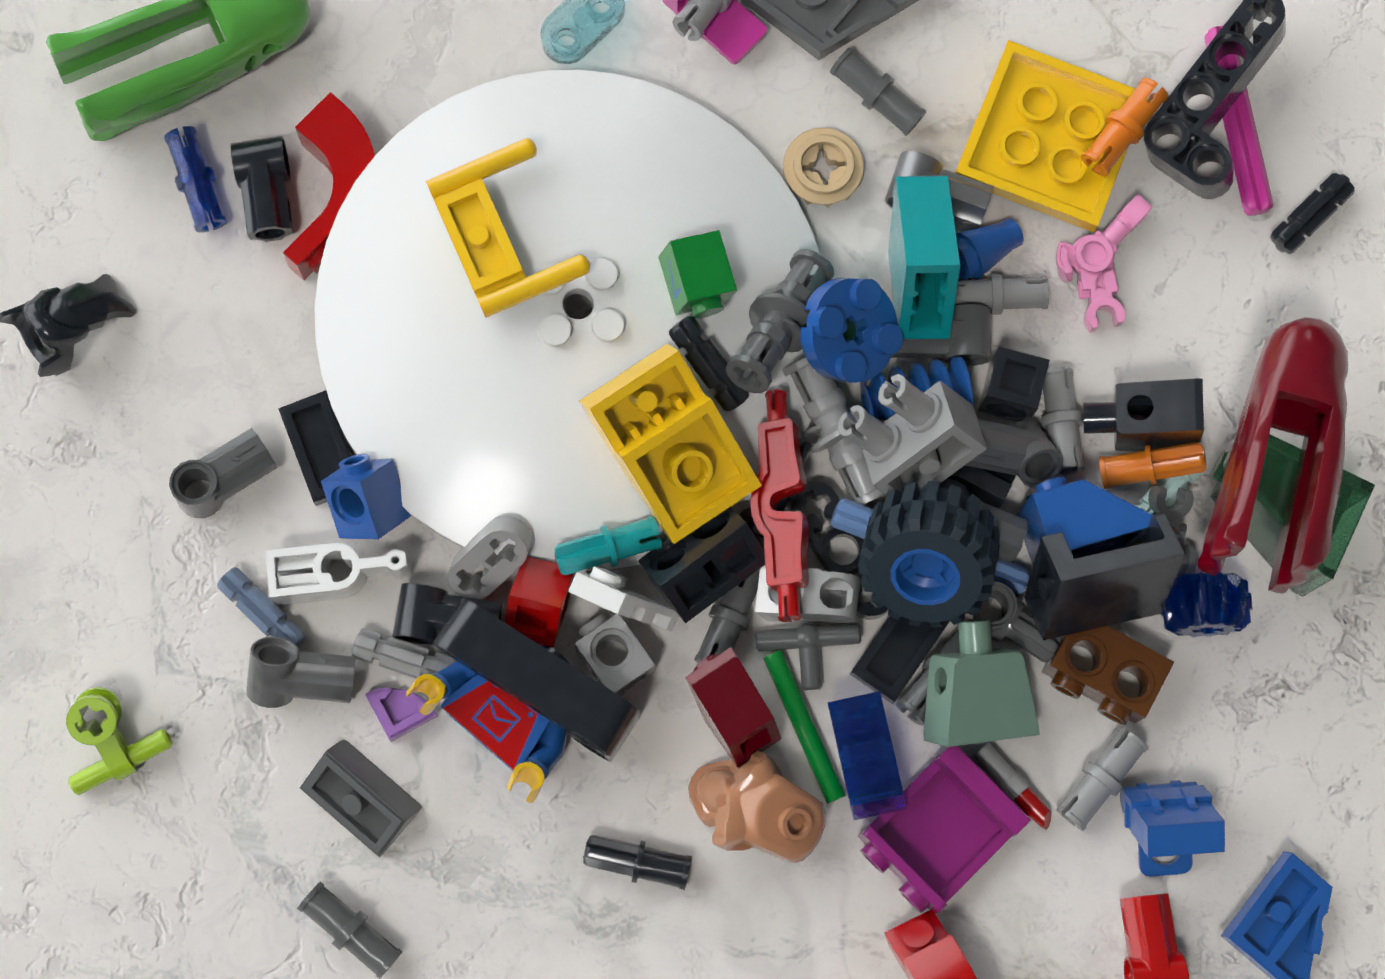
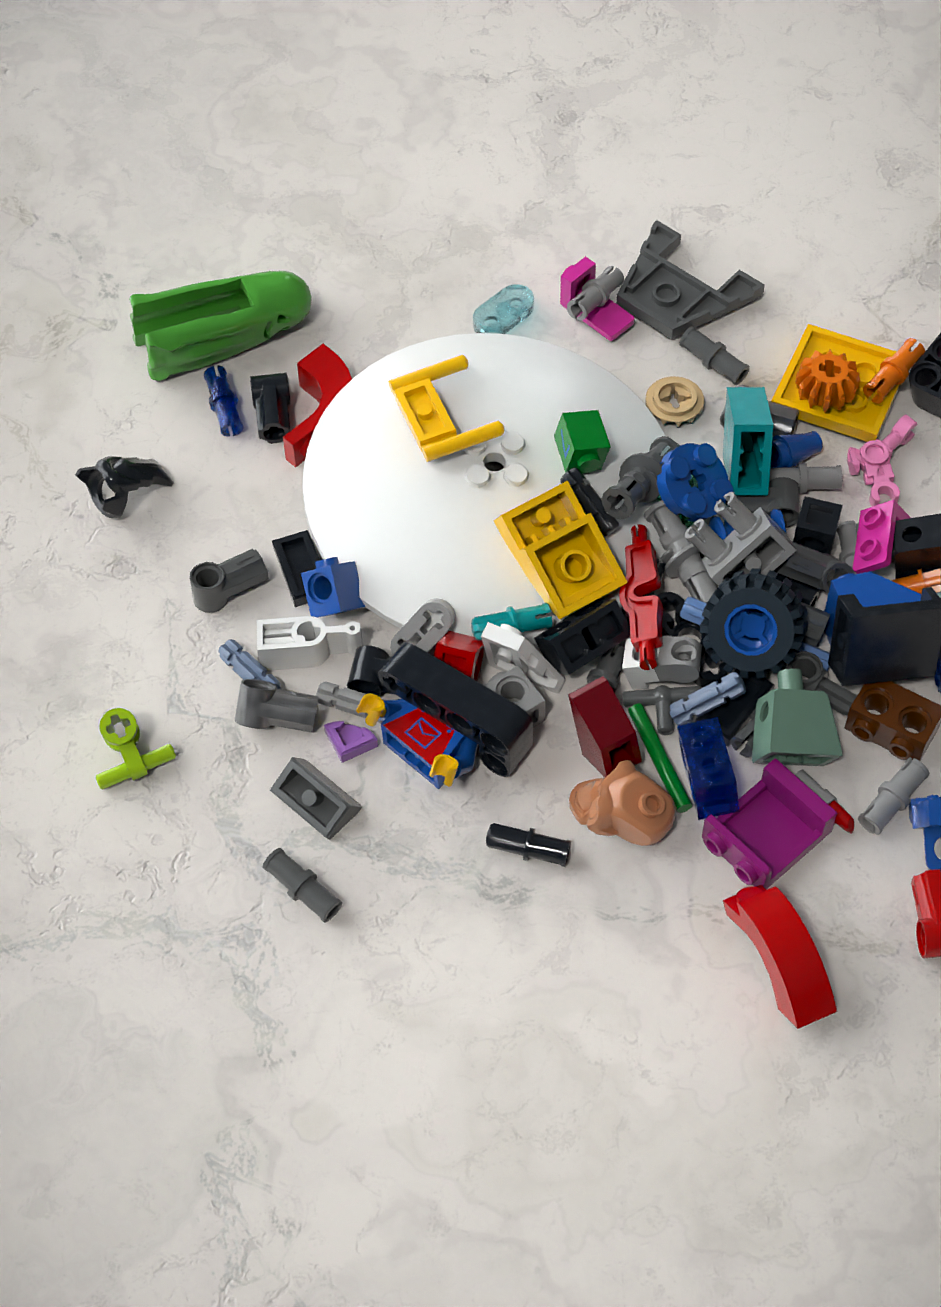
camera: 10 degrees right, 20 degrees down
(866, 650) = (707, 698): none -> sand blue axle
(1050, 142) = (827, 380): none -> orange gear
(1093, 402) = (876, 536): none -> dark pink bracket

